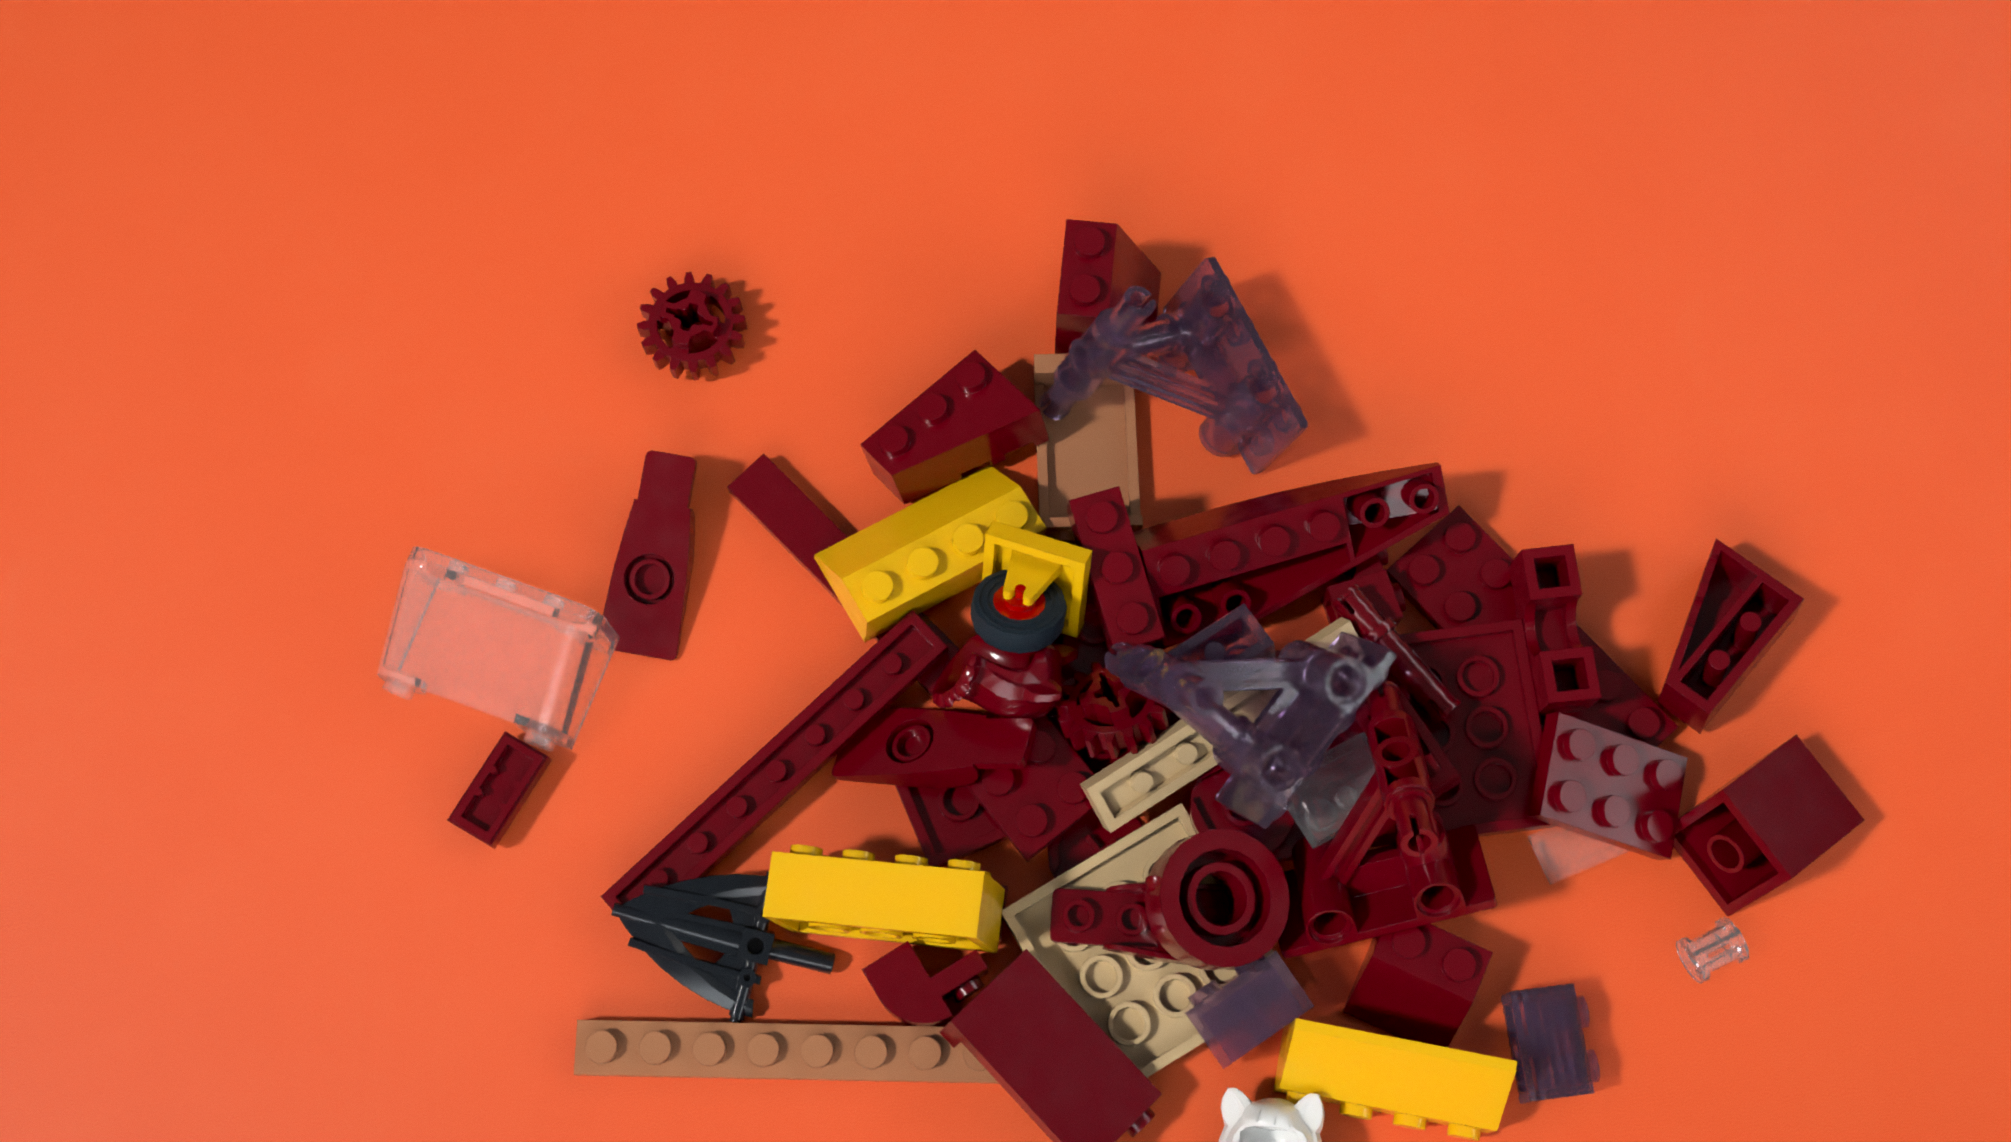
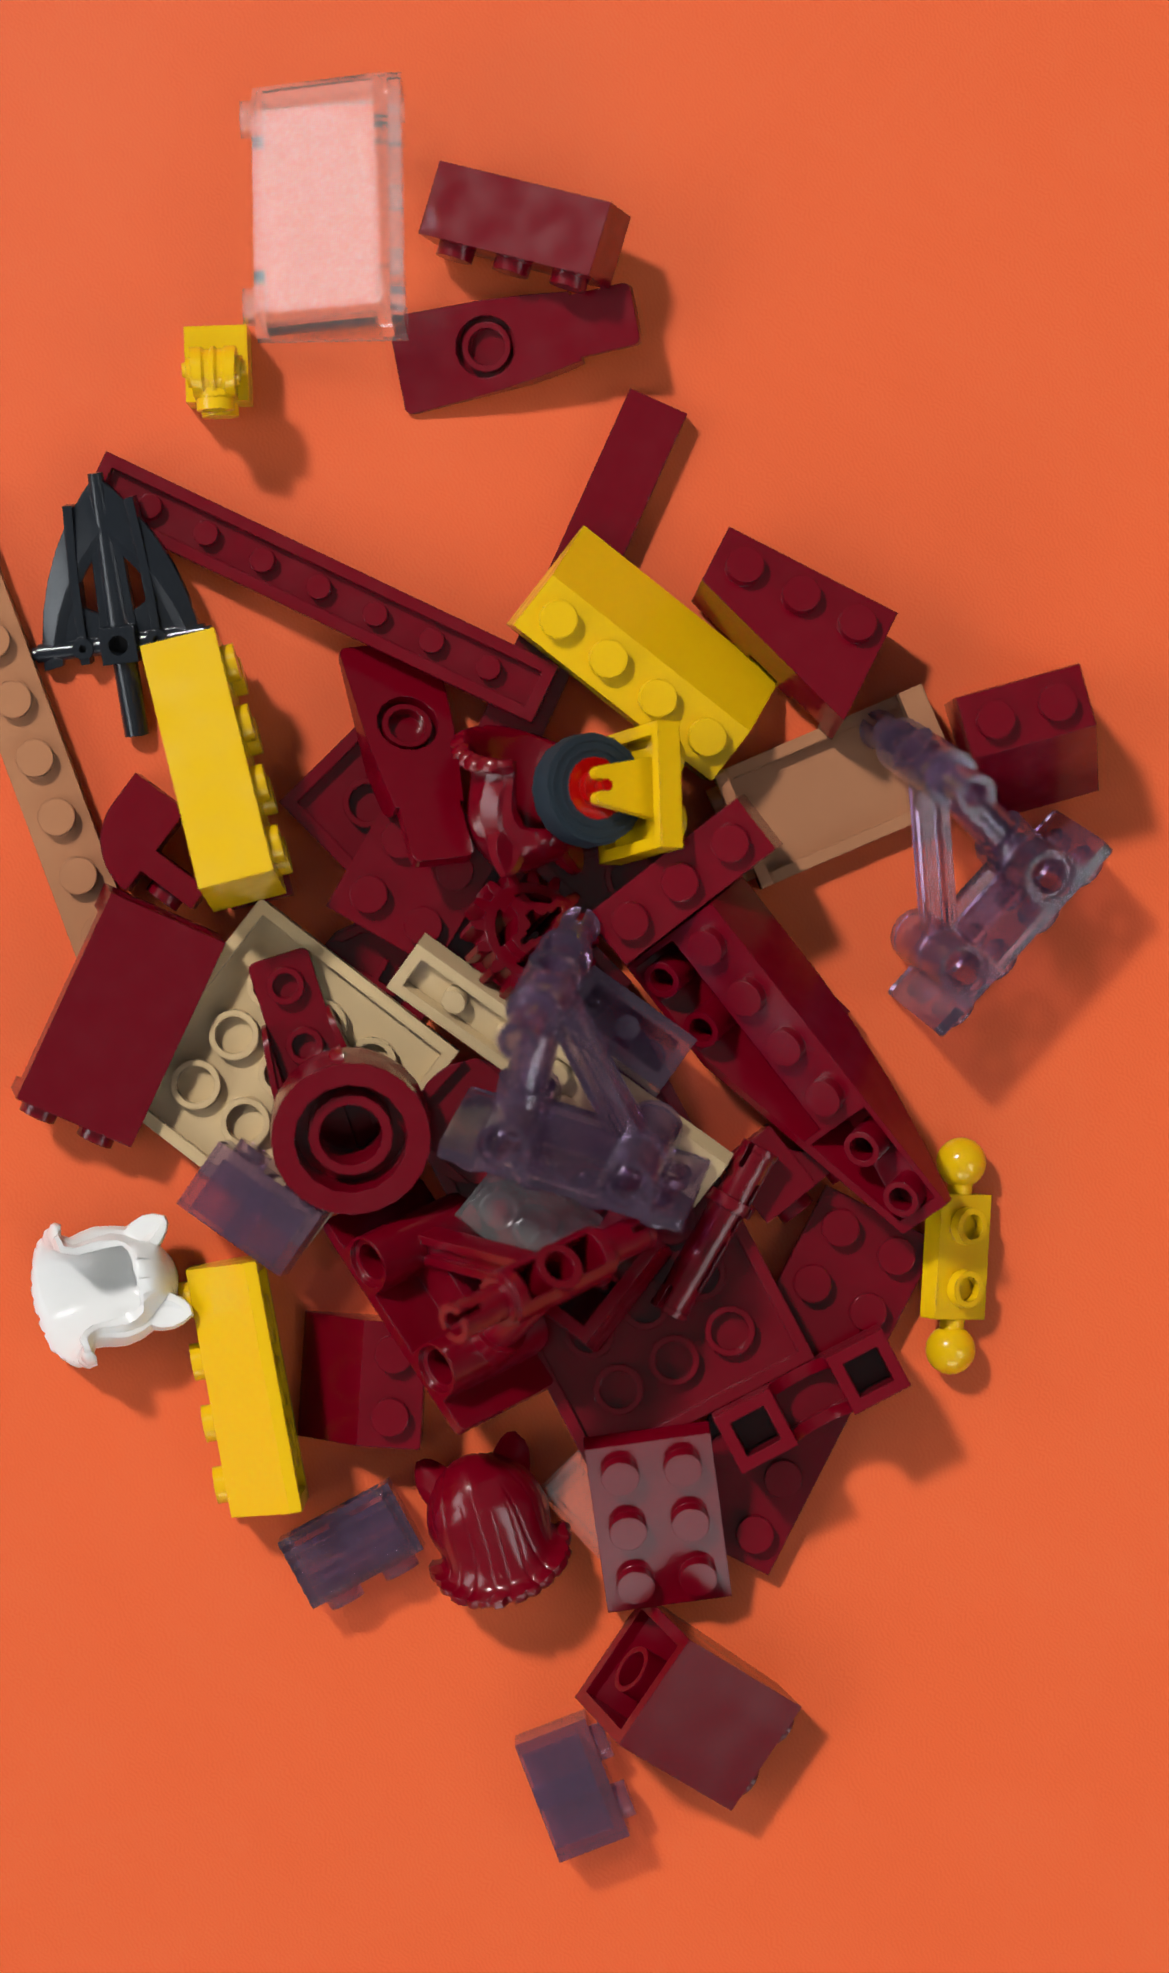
camera: 70 degrees right, 15 degrees up
(499, 790) = (180, 284): dark red plate -> none
(571, 510) = (524, 227): none -> dark red brick
(576, 784) = (218, 369): none -> yellow brick
(683, 307) = (838, 261): dark red gear -> none
(1487, 499) = (956, 1258): none -> yellow plate
(1574, 924) = (491, 1527): none -> dark red hair
(1712, 950) = (525, 1689): clear bush -> none
(1725, 635) = (888, 1593): dark red wedge -> none
(1804, 939) = (574, 1784): none -> clear purple brick

